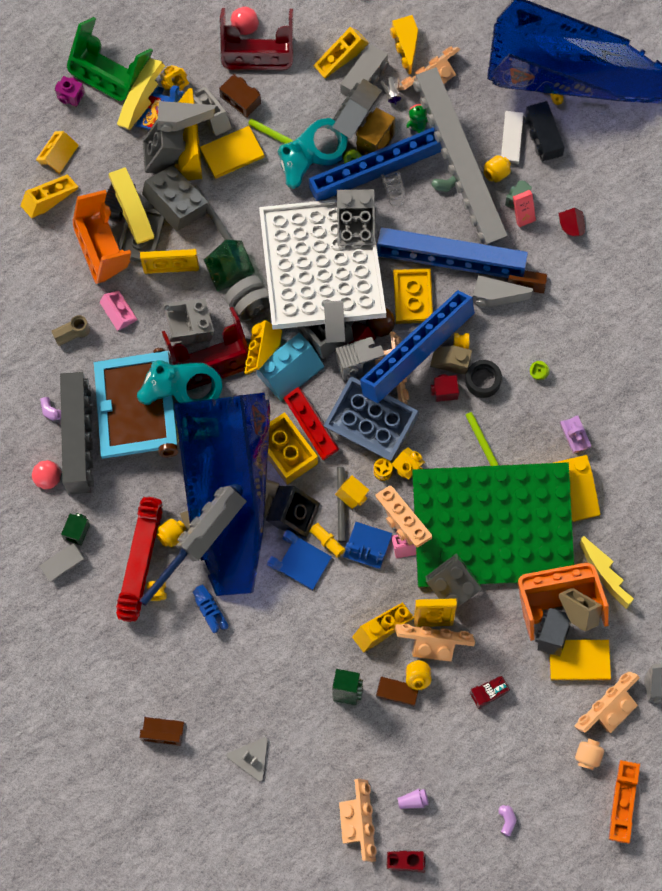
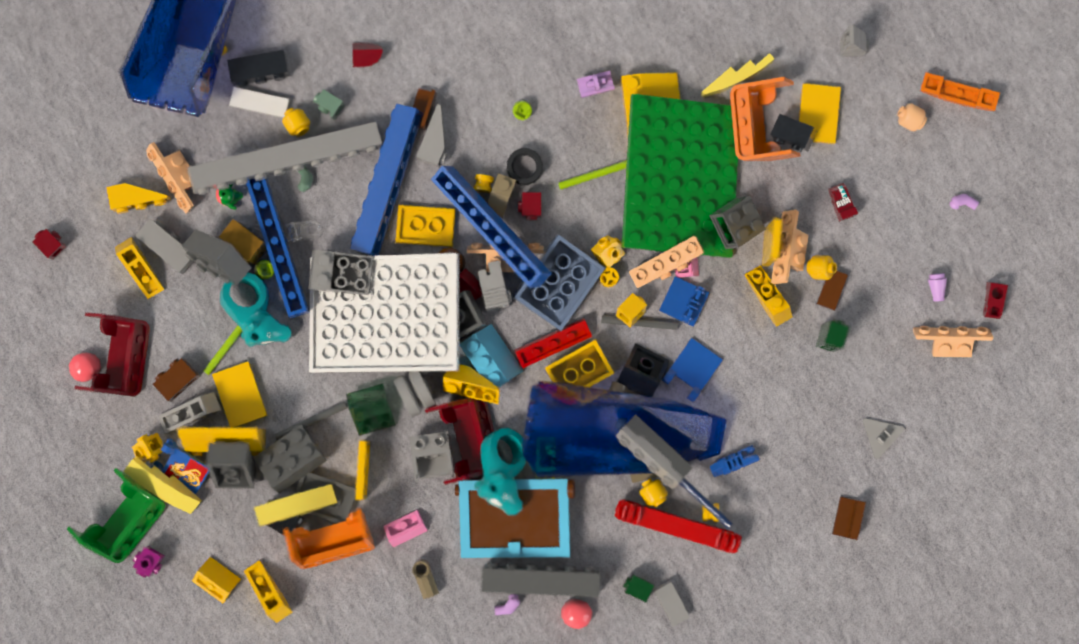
camera: 85 degrees left, 15 degrees up
(177, 116) = (213, 444): light grey slope -> none
(327, 540) = (676, 339): yellow pin -> none
(334, 321) = (462, 306): light grey slope -> none
(393, 95) = (194, 217): flat silver piece -> none
(524, 208) = (347, 100): coral tile -> none
(581, 609) = (777, 104): dark tan slope -> none
(611, 707) = (867, 90): light nougat bracket -> none

